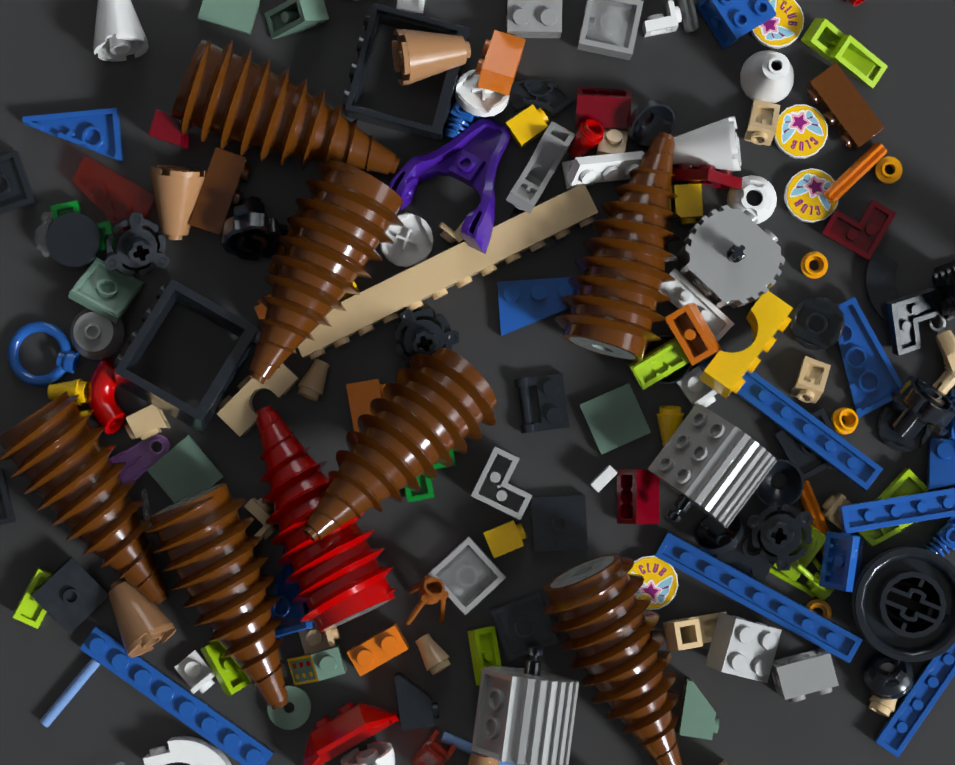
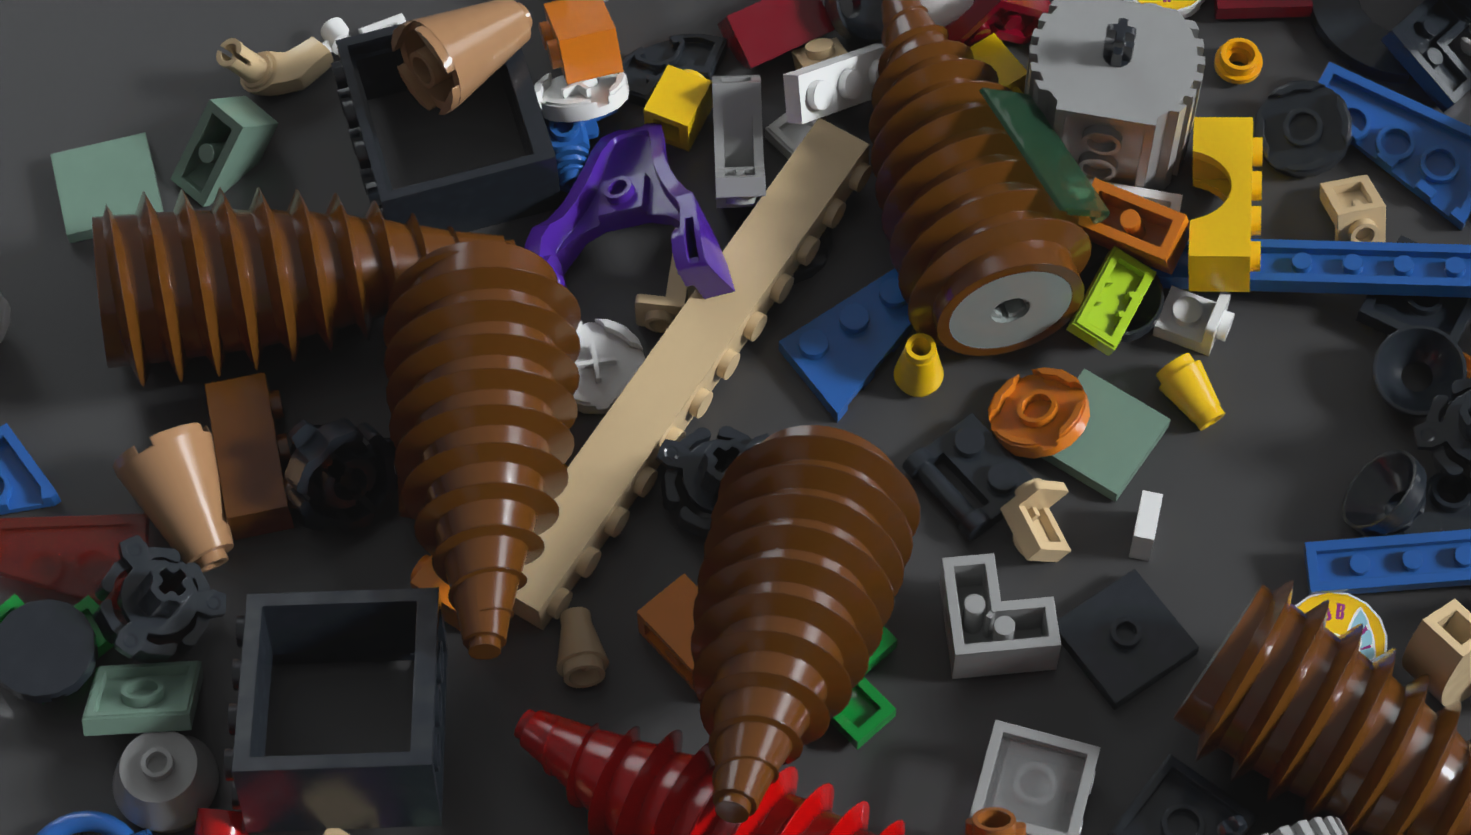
camera: 25 degrees left, 25 degrees down
(168, 130) = (114, 400): dark red brick -> none
(239, 411) = (484, 765): tan arch -> none
(505, 538) = (1055, 701): yellow brick -> none
(546, 342) = (919, 367): none -> yellow cone
(553, 447) = (1032, 522): none -> tan bracket
(587, 137) = (776, 59): red cone -> none
(592, 393) = (1039, 413): none -> orange tile
(637, 497) = (1218, 522): dark red brick -> none
(665, 284) = (1046, 154): none -> clear green piece
(711, 466) = (1302, 385): light grey piece -> none
(850, 418) = (1446, 230): light orange plate -> none

